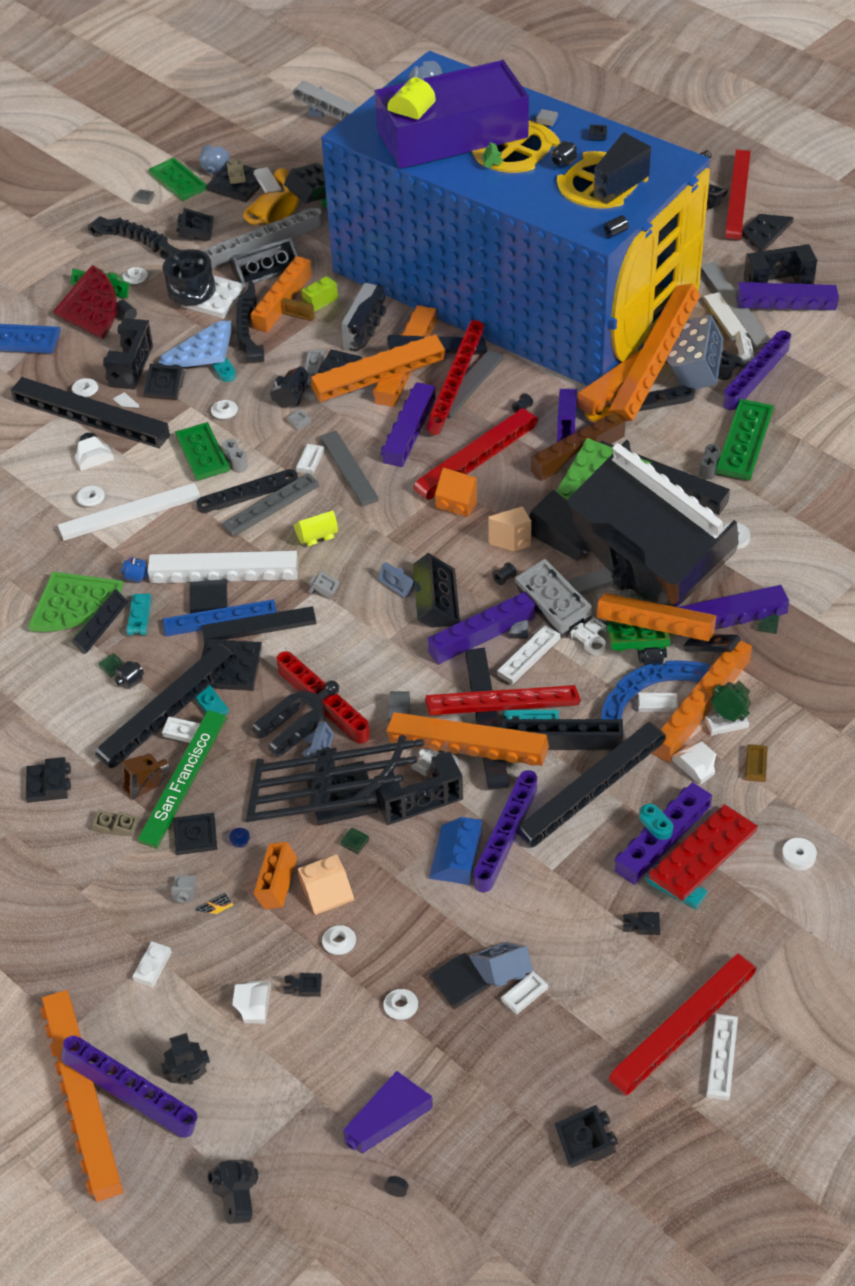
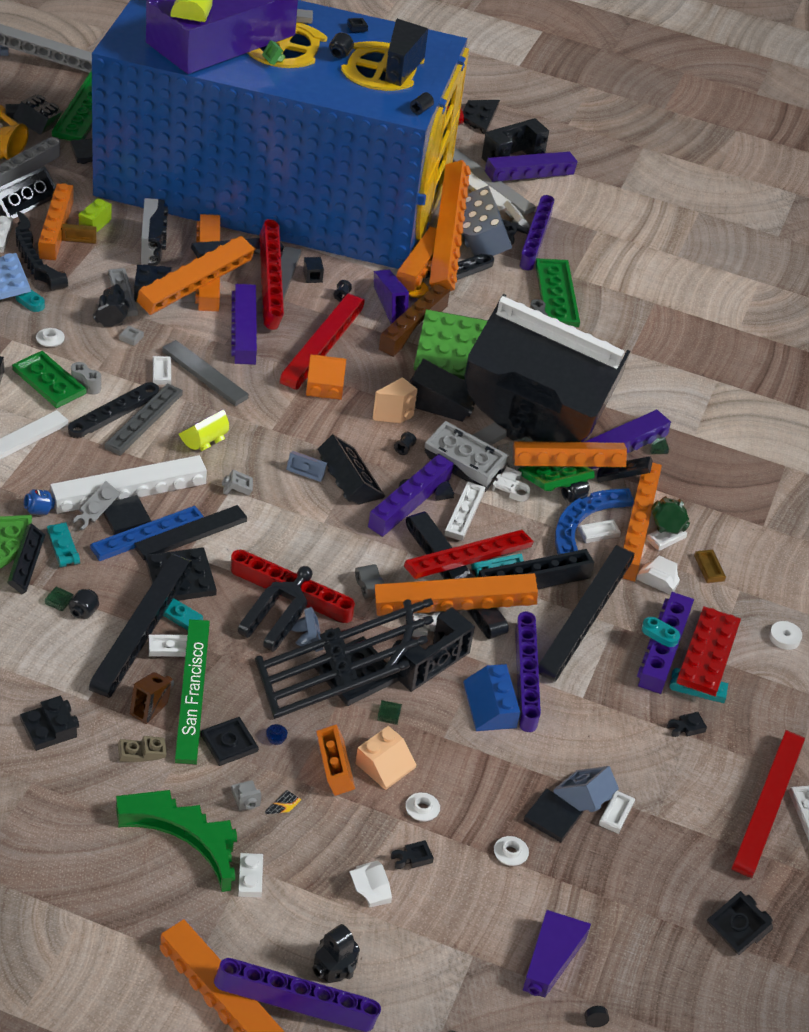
camera: 30 degrees left, 5 degrees down
(102, 887) = (160, 812): none -> green arch
(182, 582) = (97, 504): none -> light grey plate
(503, 378) = (313, 269): none -> black brick

